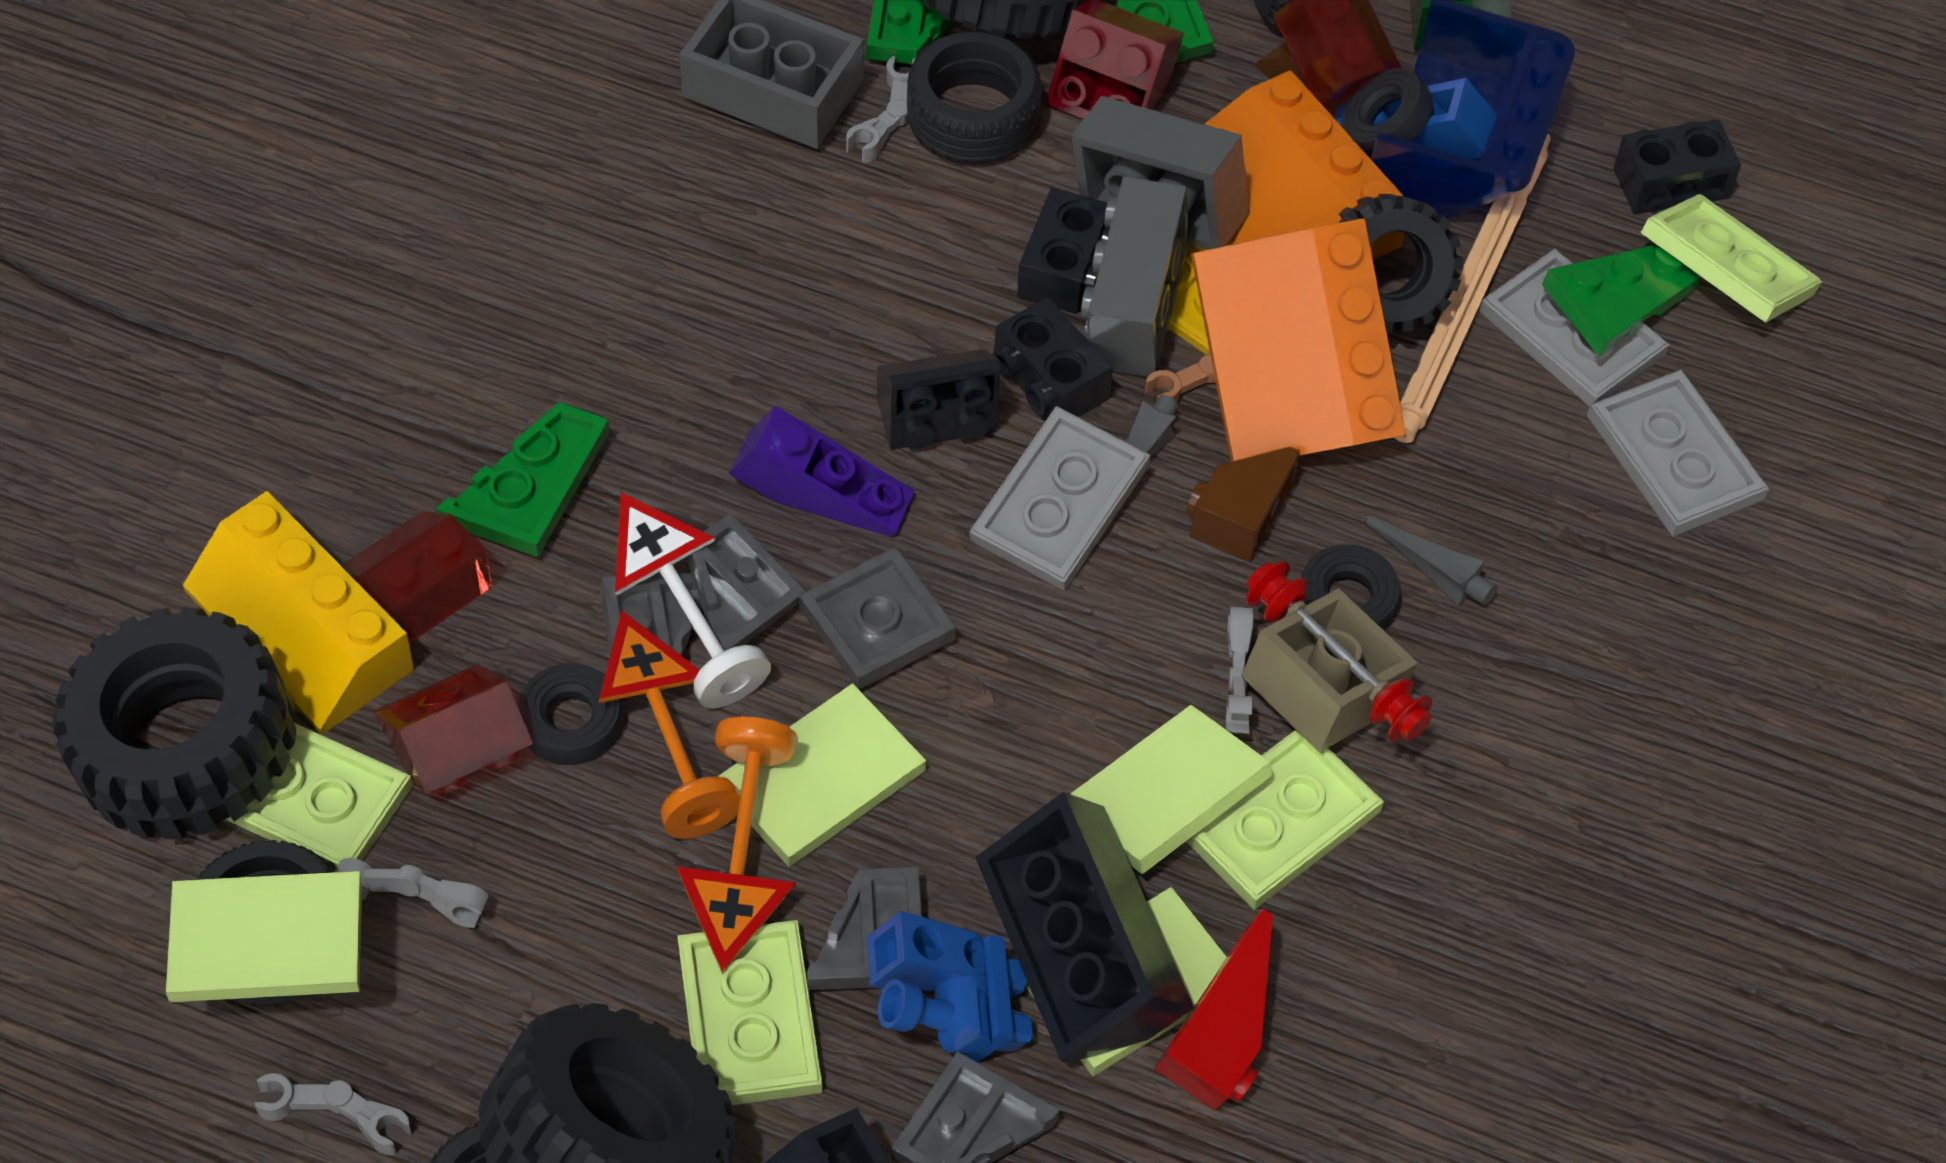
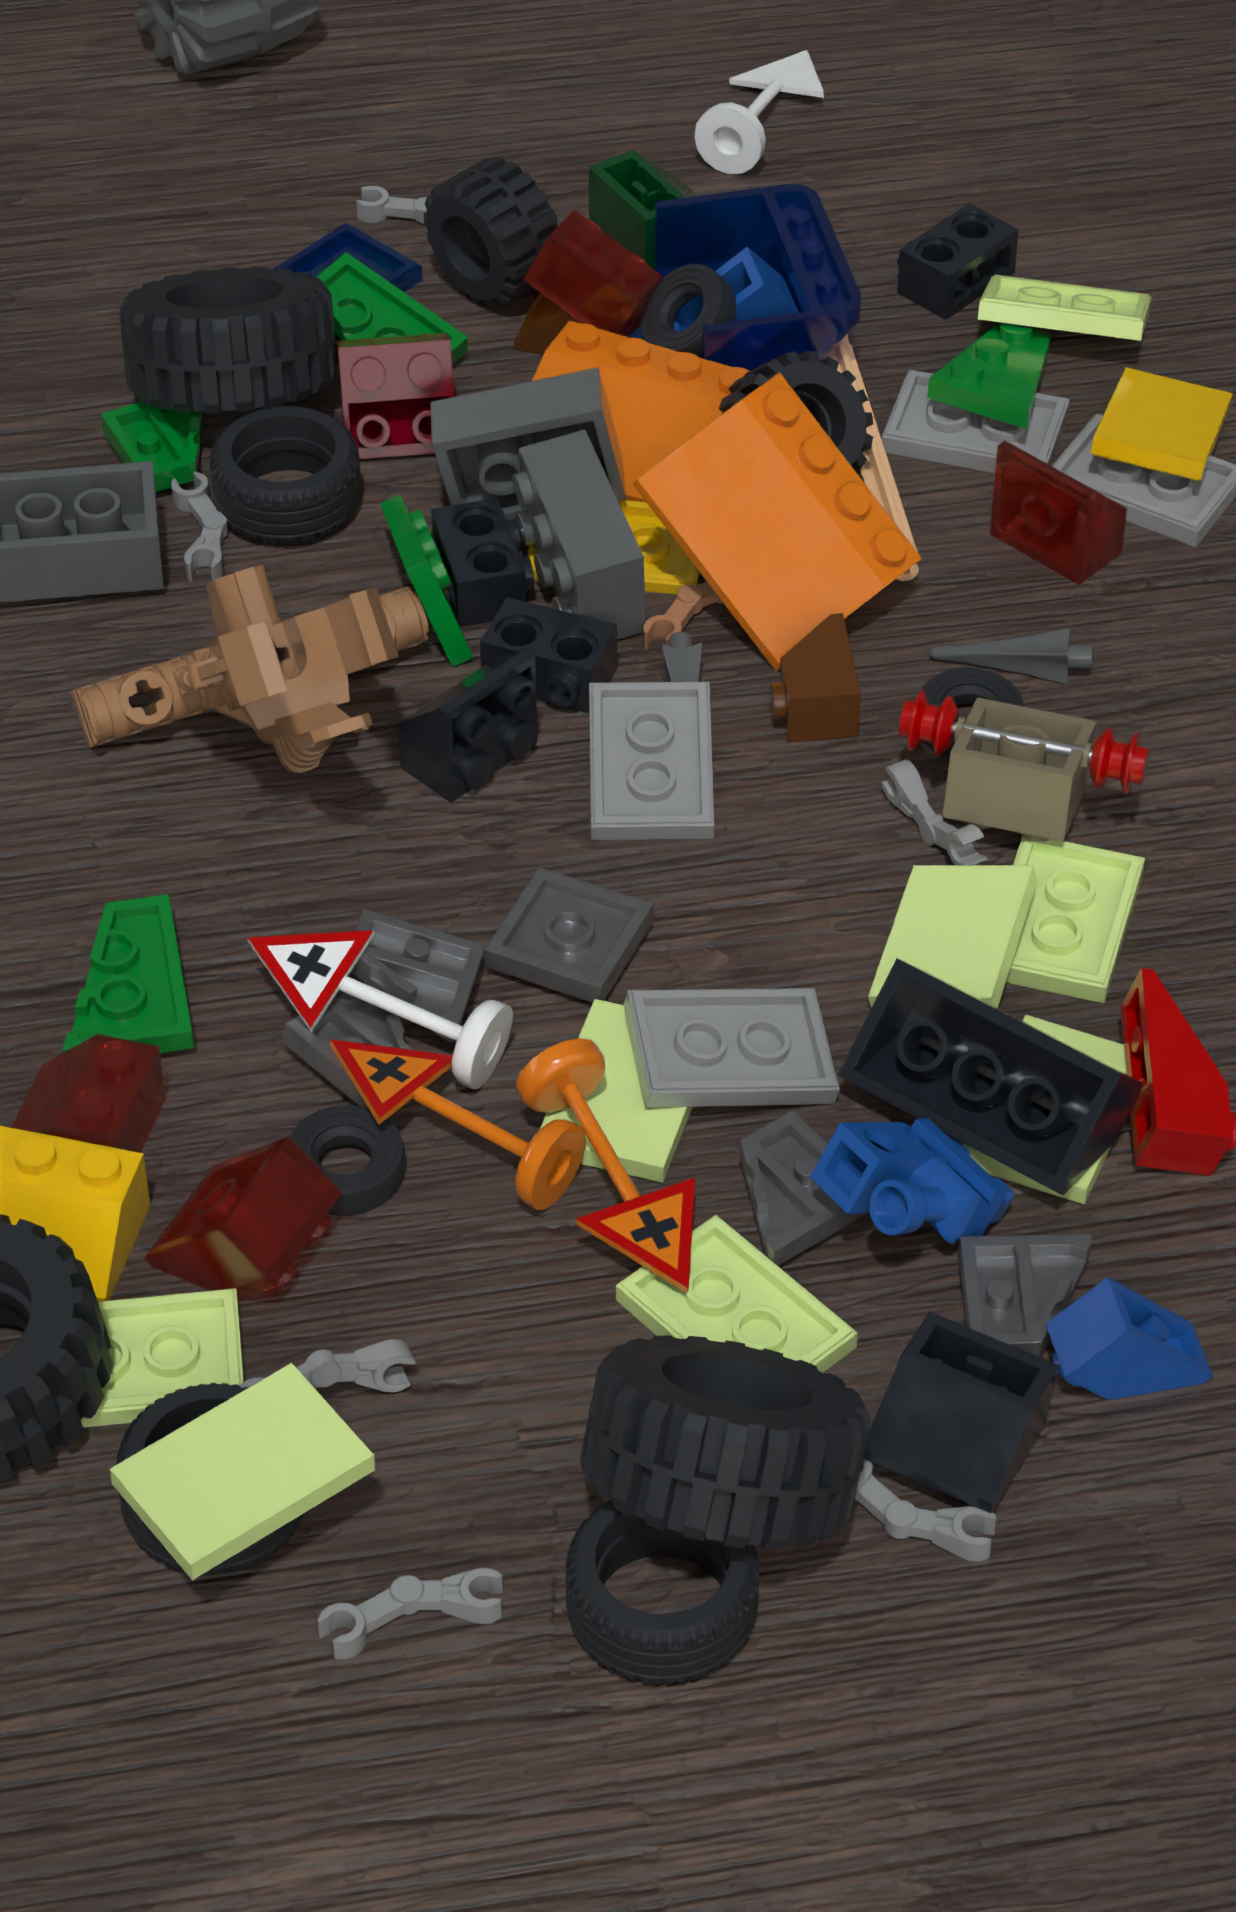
camera: 30 degrees left, 10 degrees down
(767, 263) = (264, 670): none -> medium nougat piece
(818, 475) = (405, 847): dark purple slope -> none
(917, 784) = (730, 1047): none -> light grey tile
(1001, 239) = (427, 575): none -> green wing
(1560, 448) = (1053, 516): none -> clear red slope
(1723, 409) = (1161, 424): none -> yellow tile

